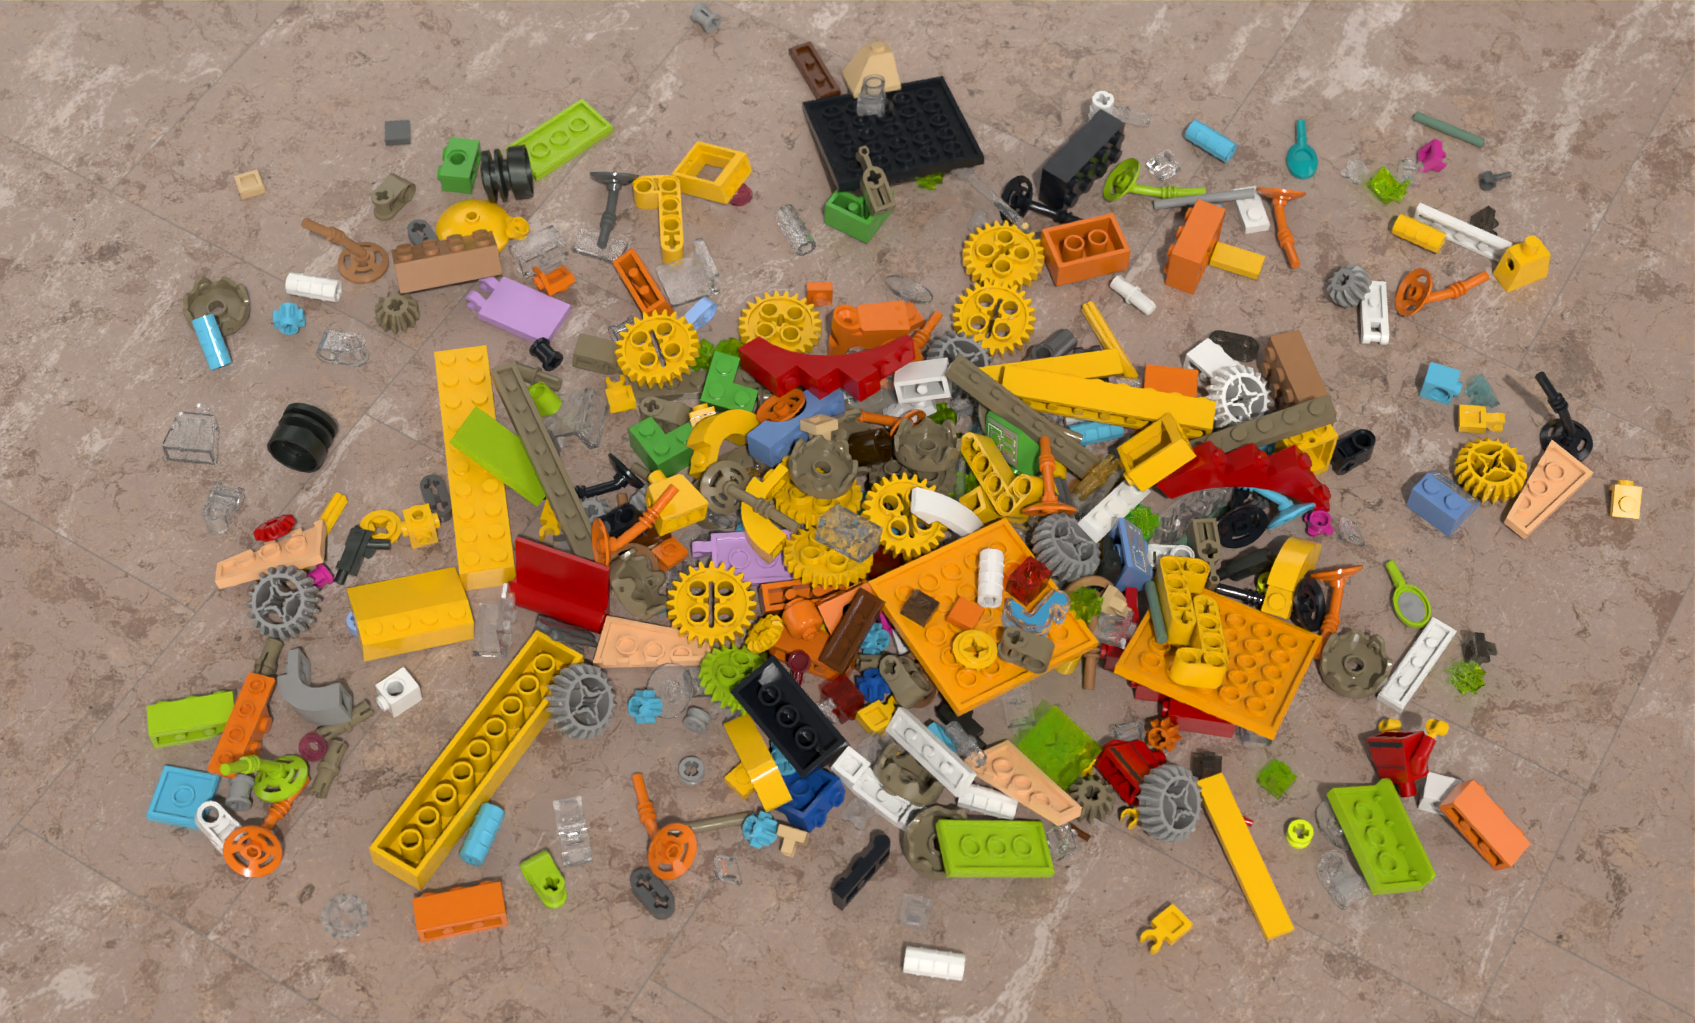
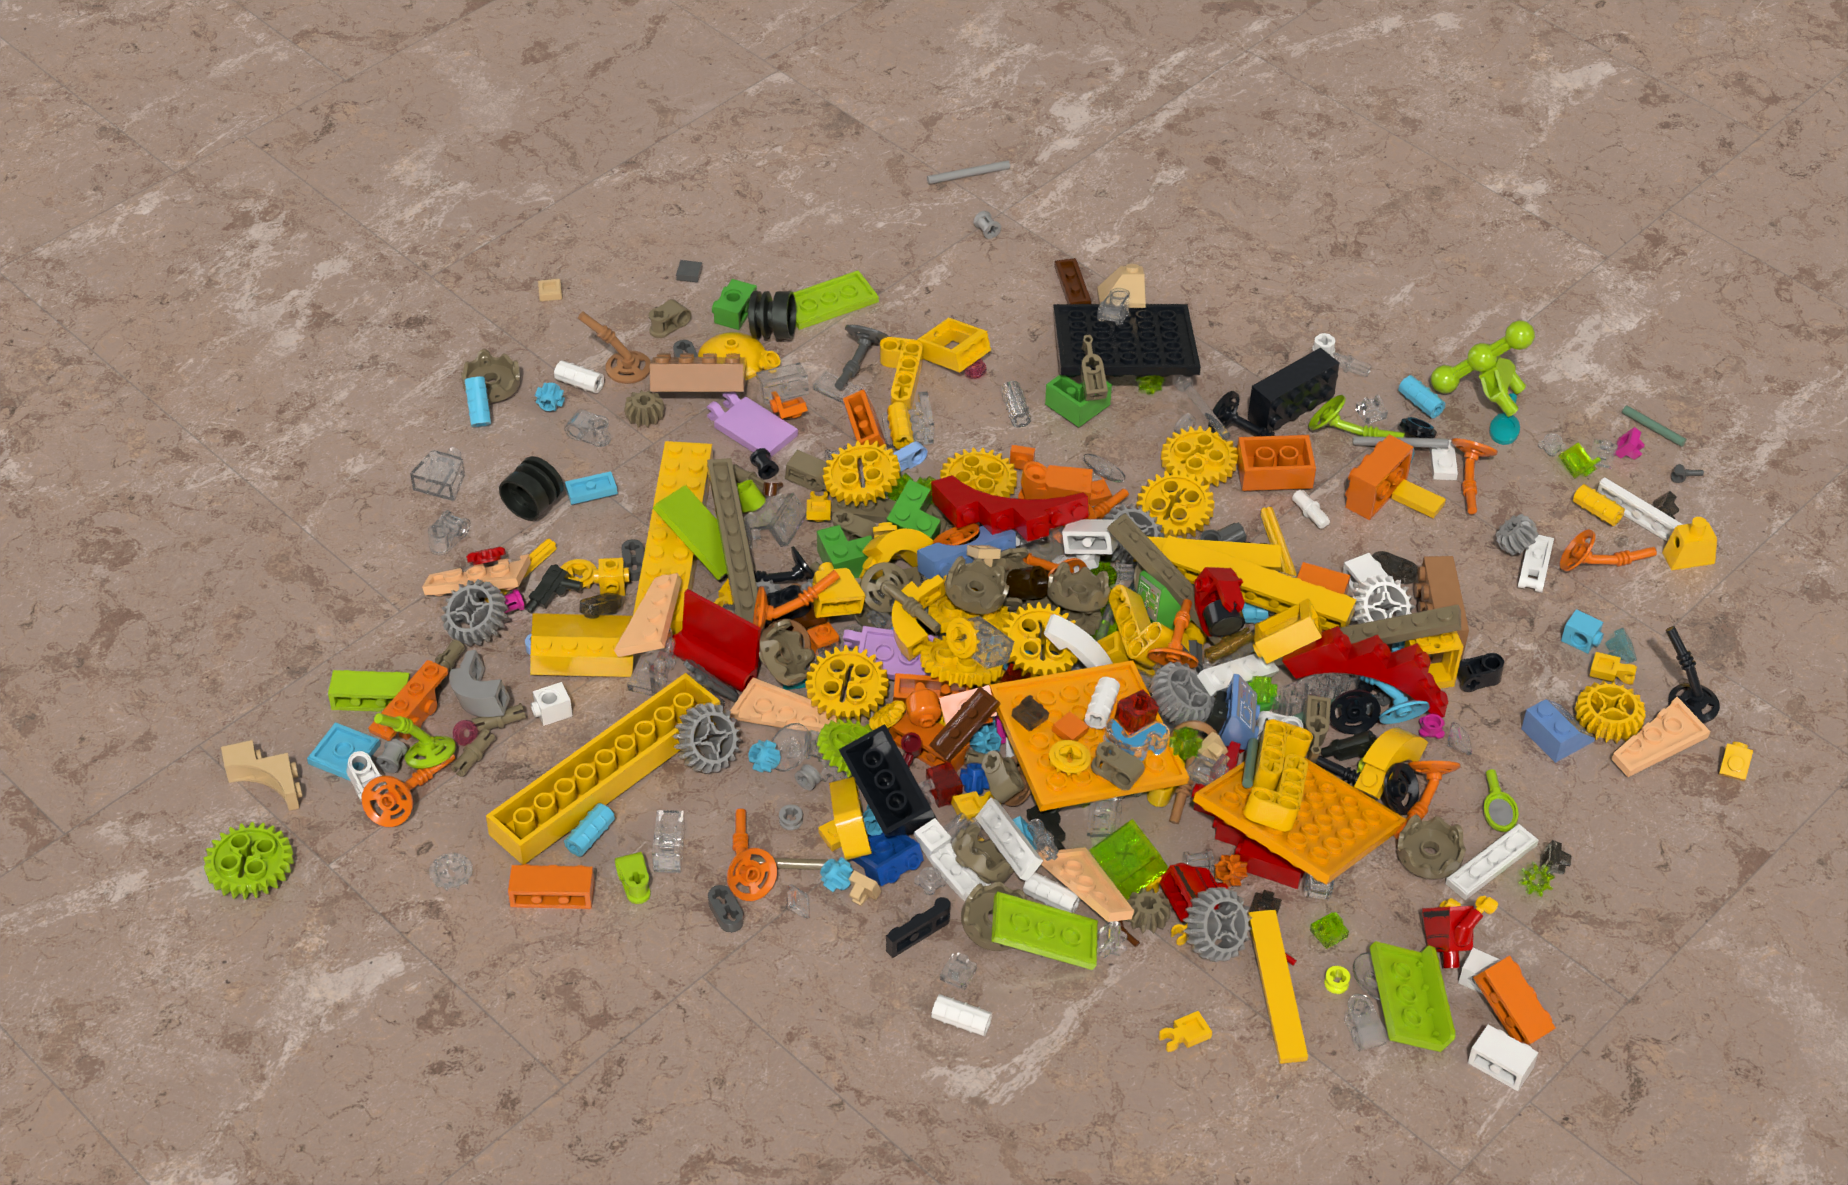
camera: 15 degrees right, 10 degrees down
(80, 838) = (277, 772): none -> tan arch
(144, 953) = (248, 860): none -> lime gear
(365, 420) = (591, 487): none -> medium azure plate
(417, 562) = (600, 604): none -> clear smoke plate
(484, 574) = (652, 618): none -> light nougat wing
(563, 384) = (770, 489): none -> reddish brown hand
(681, 281) = (900, 425): none -> yellow axle
(828, 546) = (954, 633): none -> yellow gear
(1067, 422) = (1219, 601): none -> red piece
(1217, 179) = (1418, 428): none -> black gear
(1282, 101) = (1495, 372): none -> lime connector
(1485, 885) = (1503, 1057): none -> white brick

